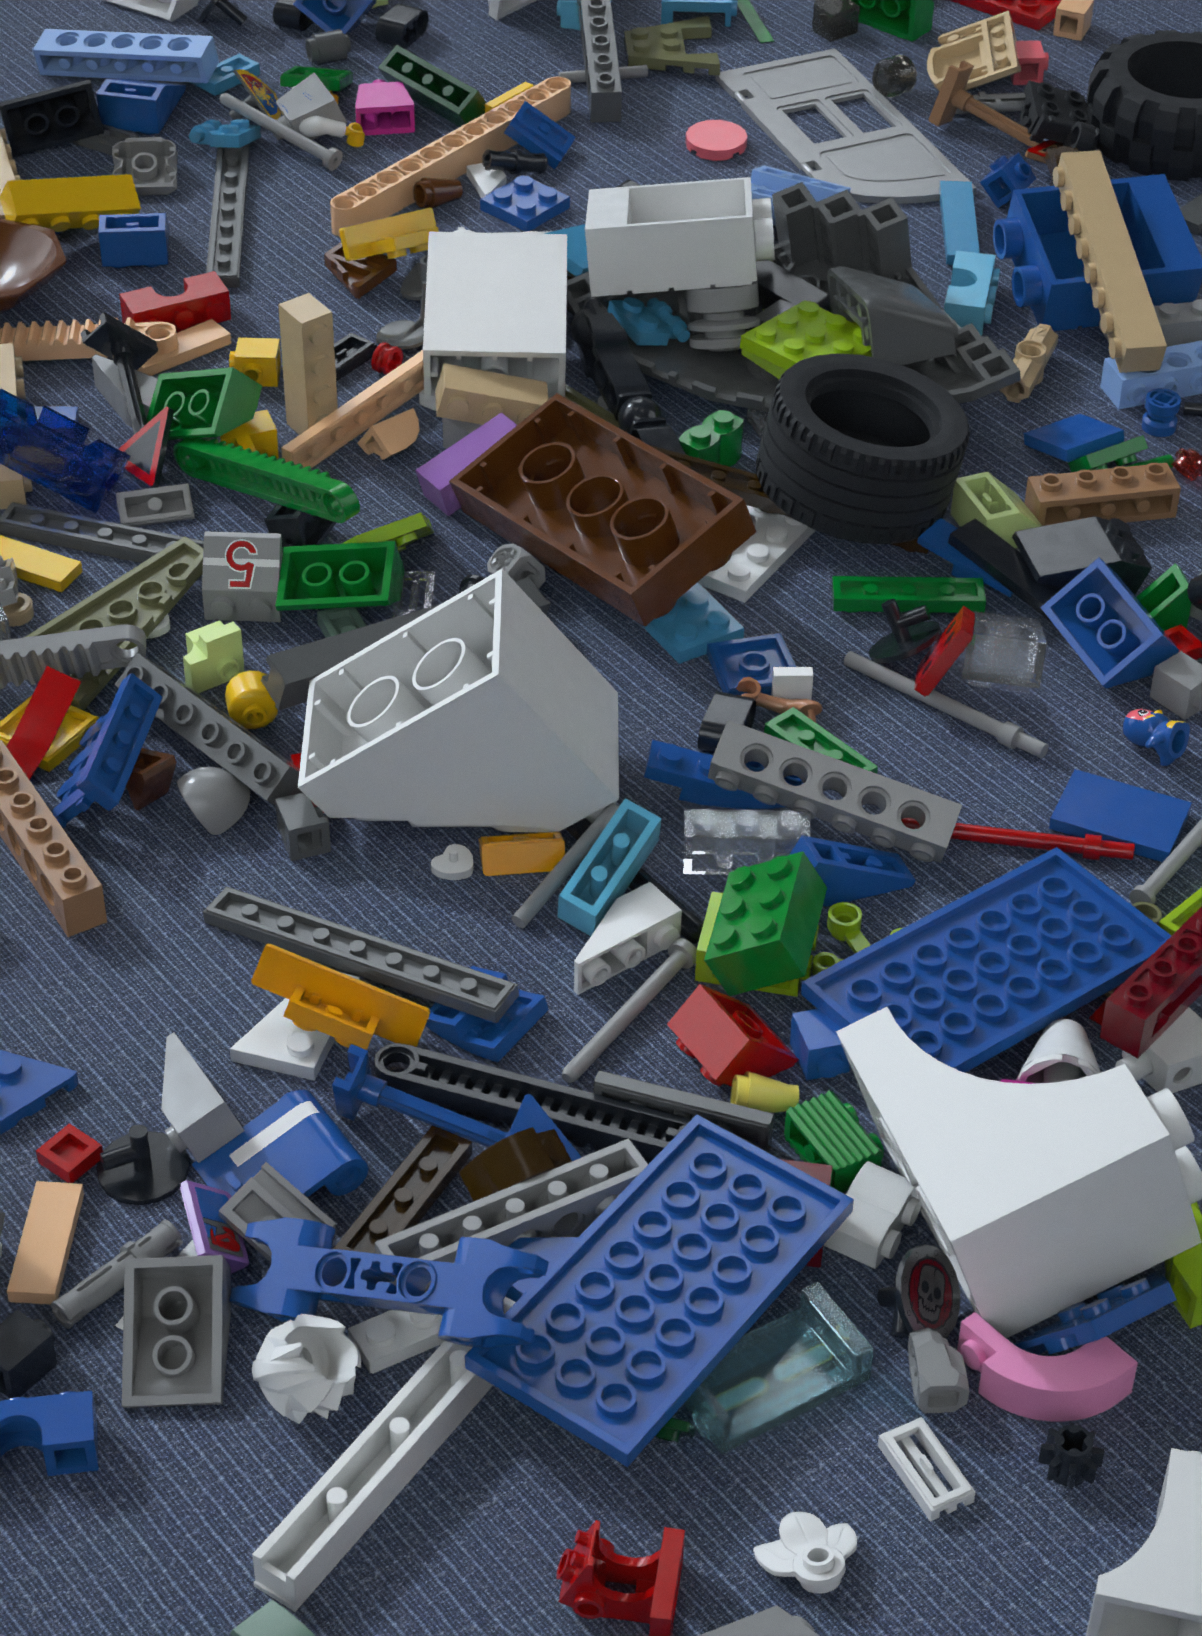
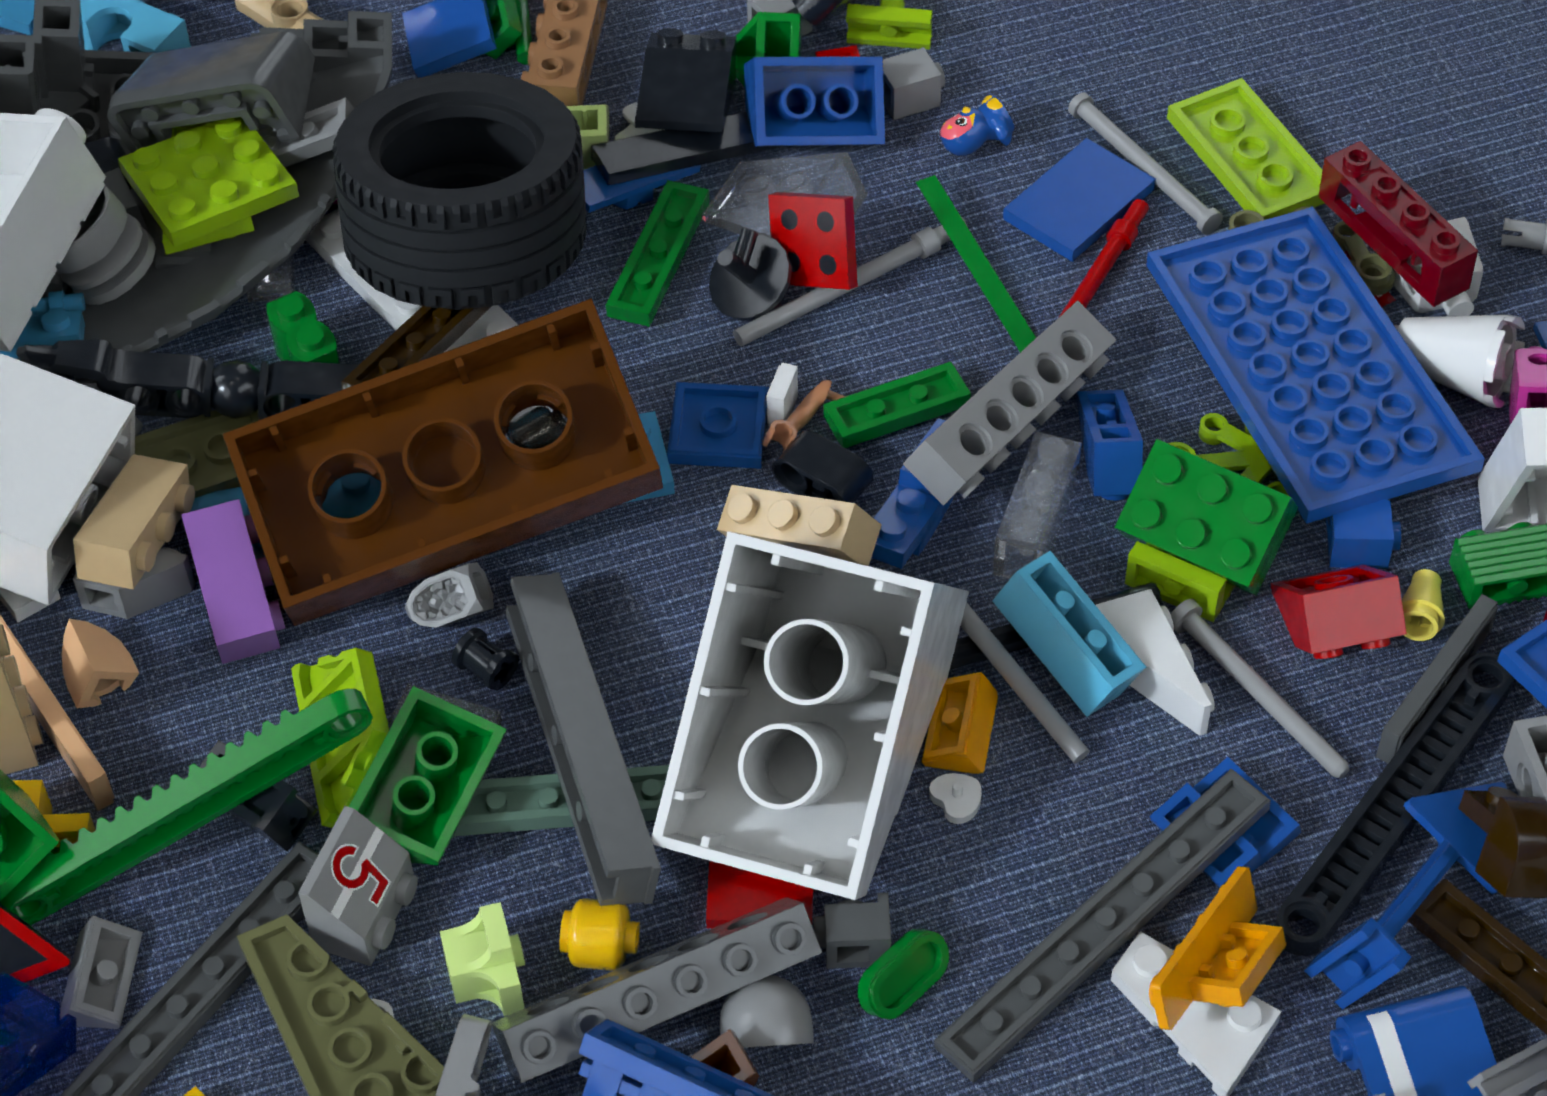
camera: 70 degrees left, 10 degrees up
(274, 856) = (903, 973): none -> green tile
(643, 704) = (801, 522): none -> tan brick
(1013, 757) = (976, 262): none -> green sticker

